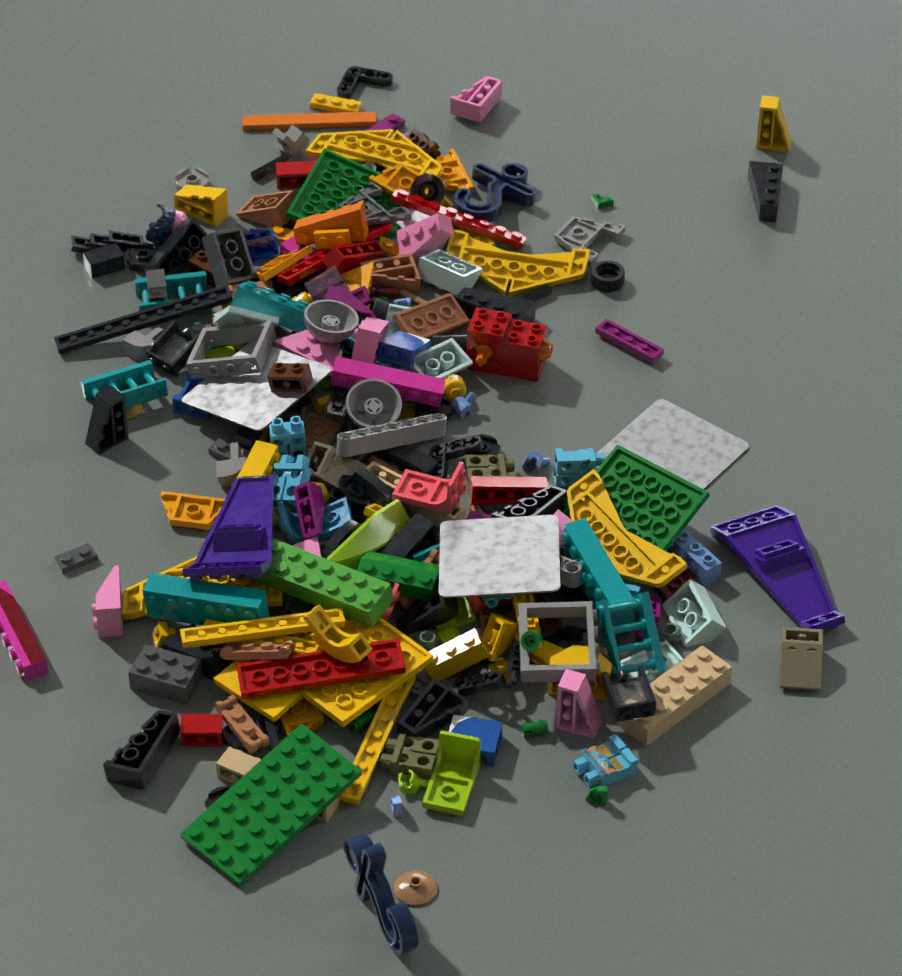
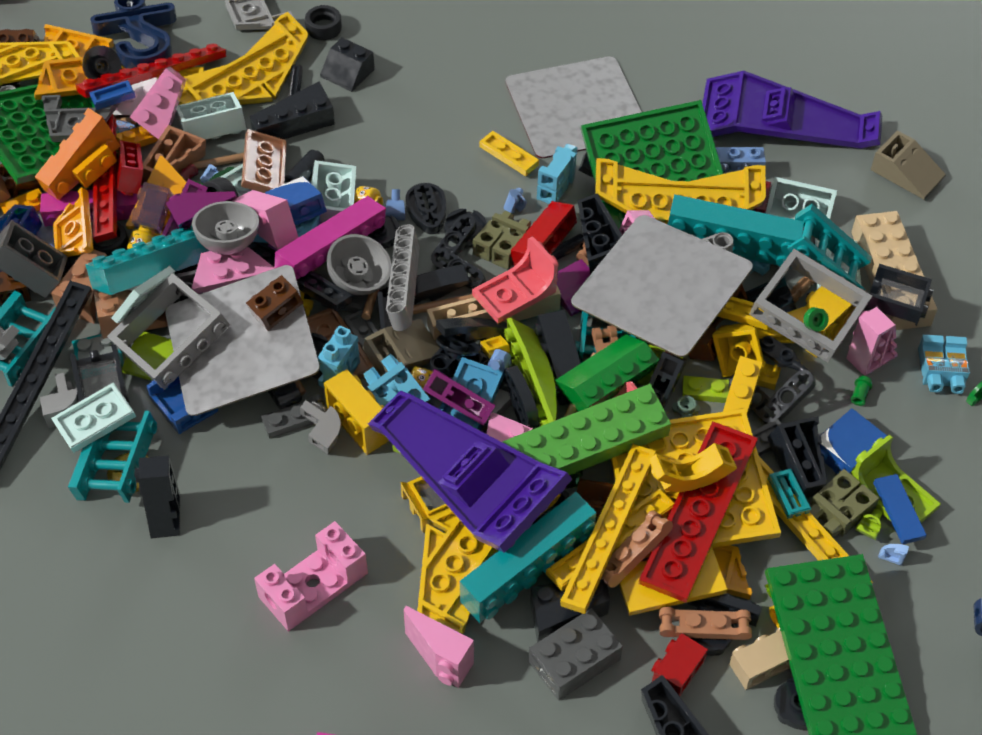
camera: 55 degrees left, 10 degrees up
(75, 558) = (323, 644): dark grey plate -> none
(94, 526) = (335, 564): none -> bright pink plate
(139, 360) = (93, 417): none -> light aqua tile
(162, 633) = (513, 625): yellow tile -> none
(191, 510) = (346, 496): light orange wing -> none
(359, 515) = (500, 360): none -> medium blue piece
(396, 713) = (785, 495): none -> teal tile
(403, 209) = (112, 95): none -> blue tile
(433, 786) = (899, 509): none -> blue tile
(474, 421) = (417, 211): none -> black piece
(507, 345) = (360, 128): red piece -> none
(576, 310) = (347, 64): none -> black slope
(578, 432) = (509, 153): none -> yellow plate
(629, 341) = (419, 55): magenta plate -> none

